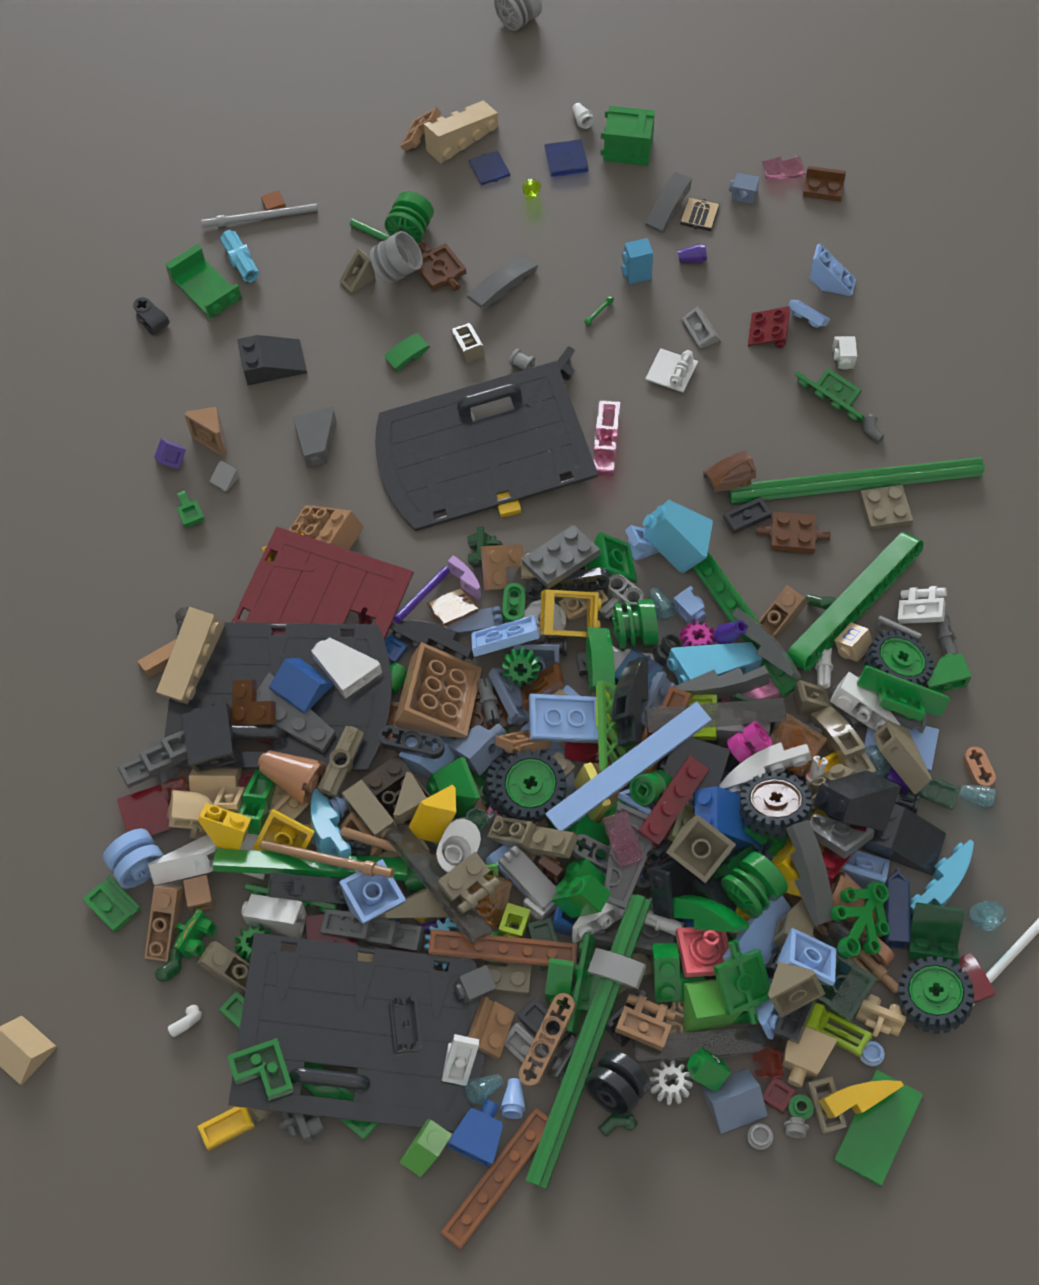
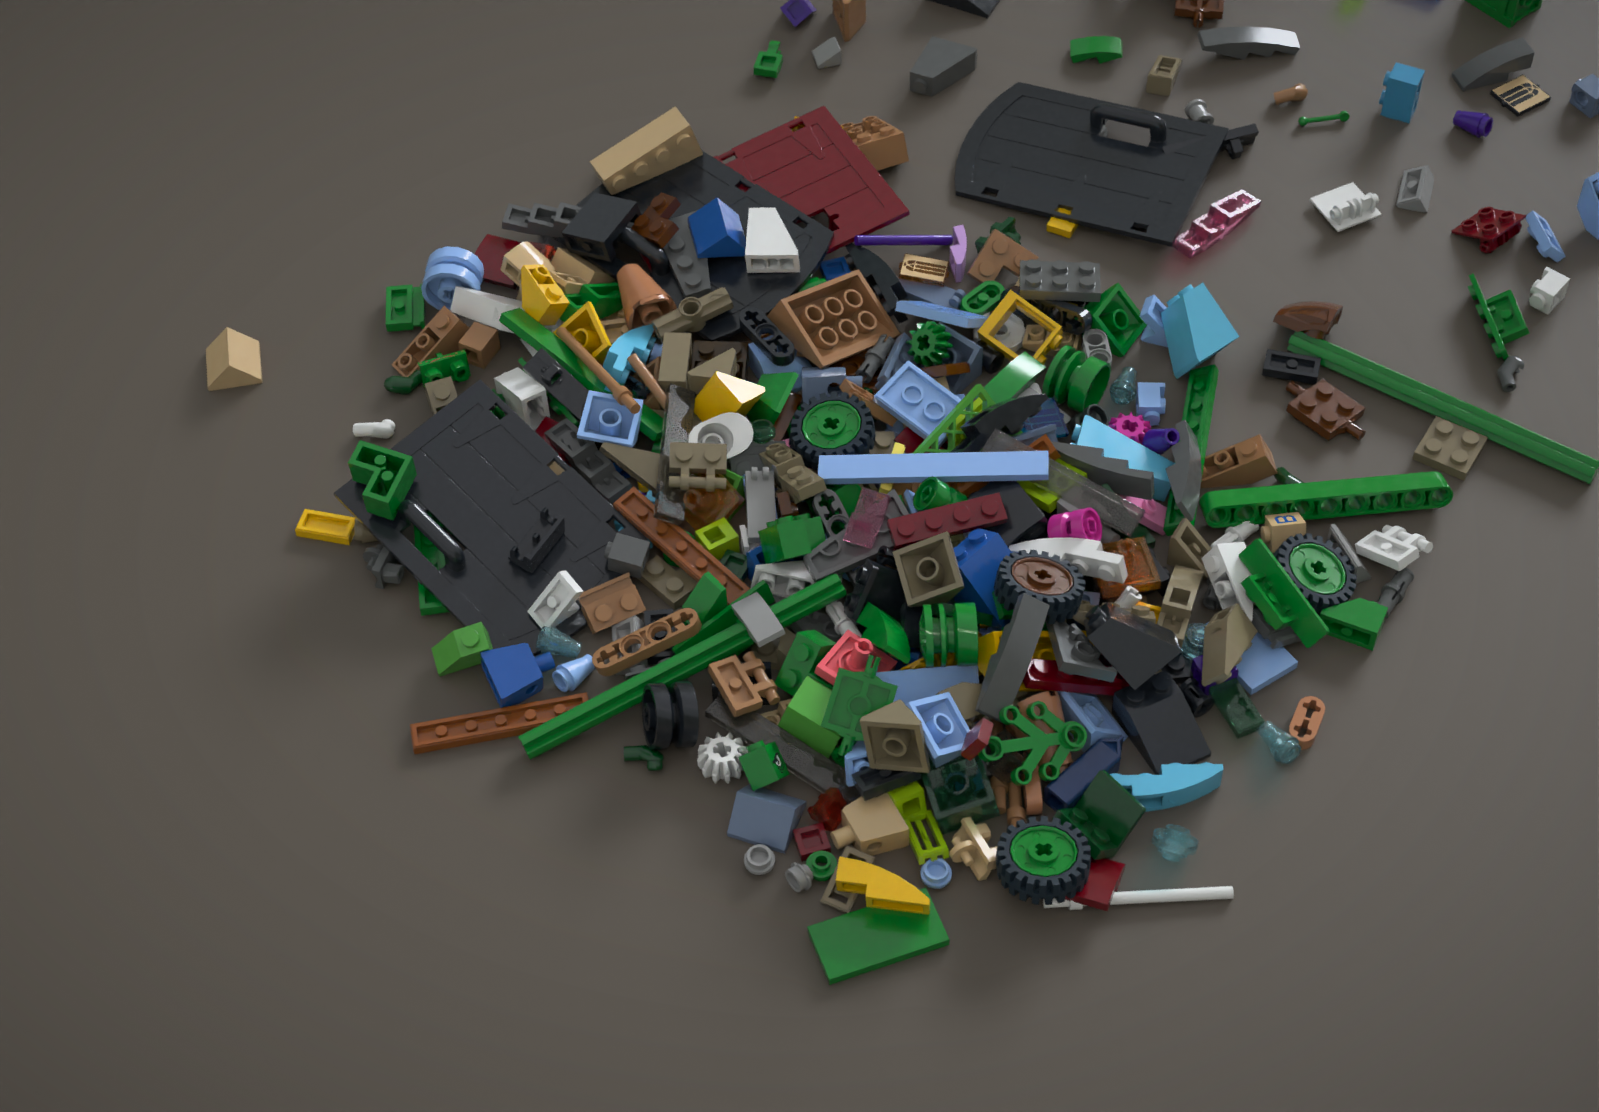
camera: 40 degrees right, 10 degrees down
(566, 302) = (1296, 93): none -> medium nougat arm
(841, 949) = (976, 739): none -> tile

